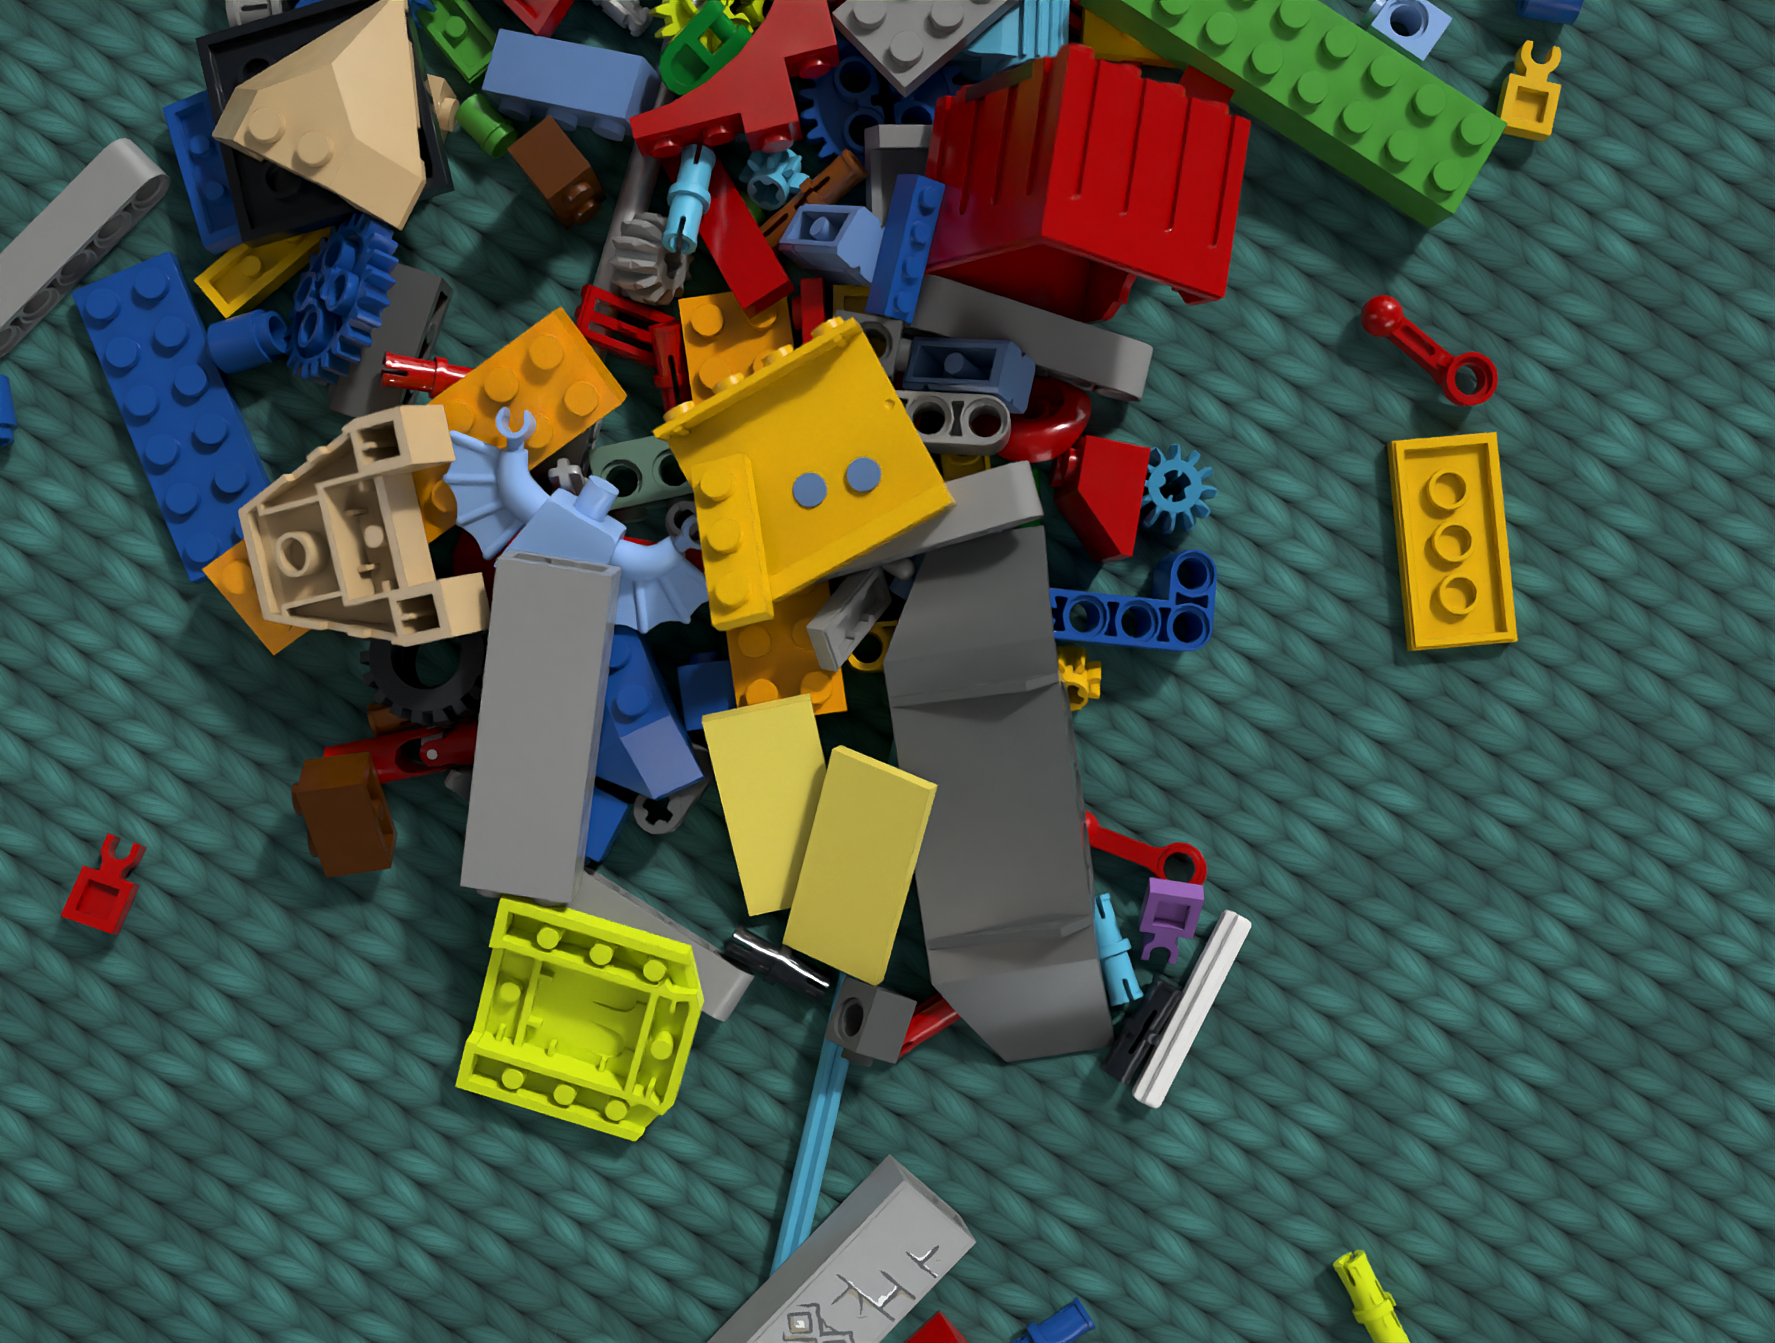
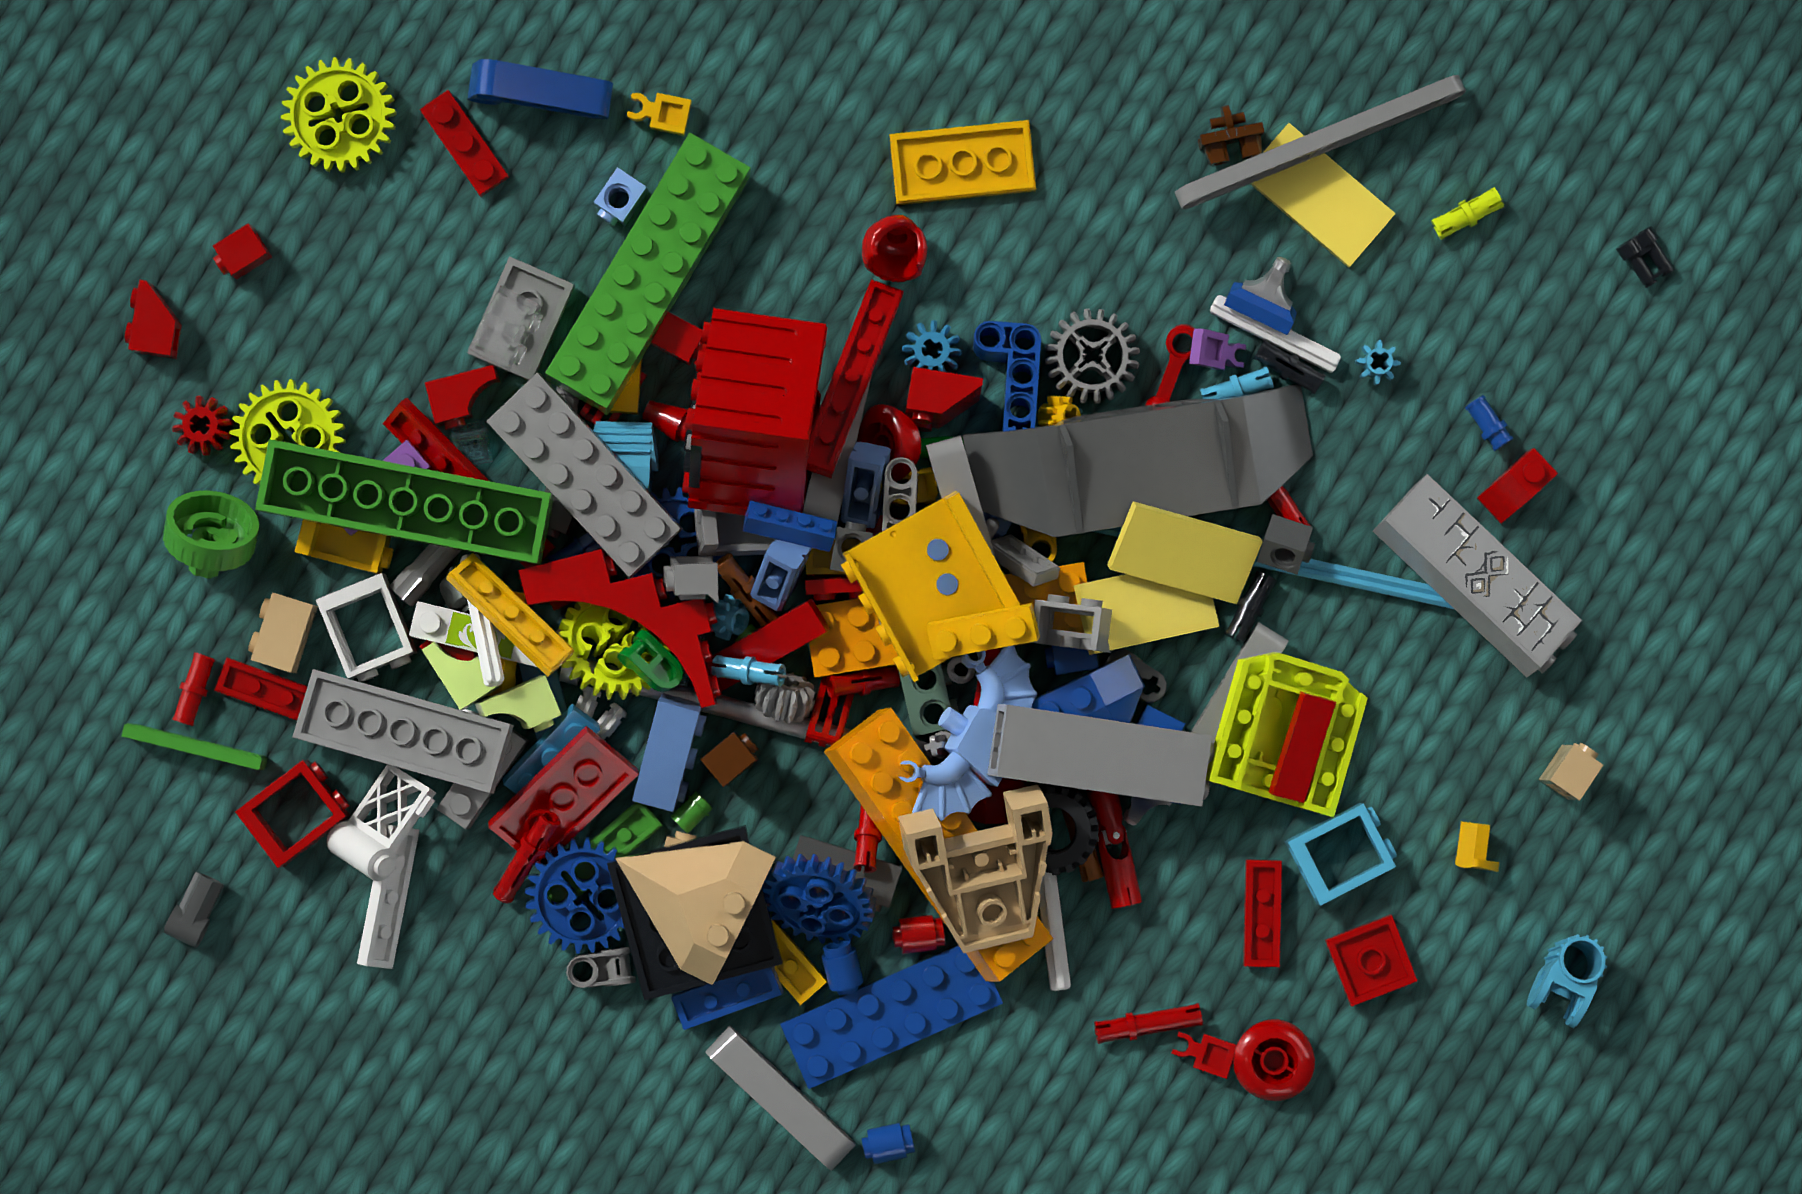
camera: 85 degrees left, 0 degrees up
(88, 990) = (1274, 1060): none -> red hat
(154, 798) = (1143, 1024): none -> red pin
(239, 1139) = (1371, 960): none -> red plate
(290, 445) = (918, 934): none -> red brick
(291, 661) = (1052, 919): none -> white axle
(314, 974) = (1262, 913): none -> red plate
(345, 814) = (1156, 889): reddish brown brick -> none
(405, 1301) = (1473, 847): none -> yellow tile
(442, 1073) = (1308, 868): none -> medium azure window
(558, 1041) = (1302, 747): none -> red tile
(735, 645) = (1096, 641): none -> light grey window
(827, 107) = (692, 577): none -> light grey window
(1127, 360) = (852, 377): none -> red tile
(1136, 1177) = (1387, 364): none -> medium azure gear
(1194, 700) = (1080, 343): none -> light grey gear
(1247, 996) = (1265, 298): none -> piece
(1326, 432) = (895, 249): none -> red piece
(1385, 318) = (814, 209): red piece -> none
(1401, 1078) = (1325, 202): none -> light yellow tile
(1487, 1083) = (1320, 142): none -> light grey beam
(1500, 943) = (1215, 142): none -> reddish brown hips

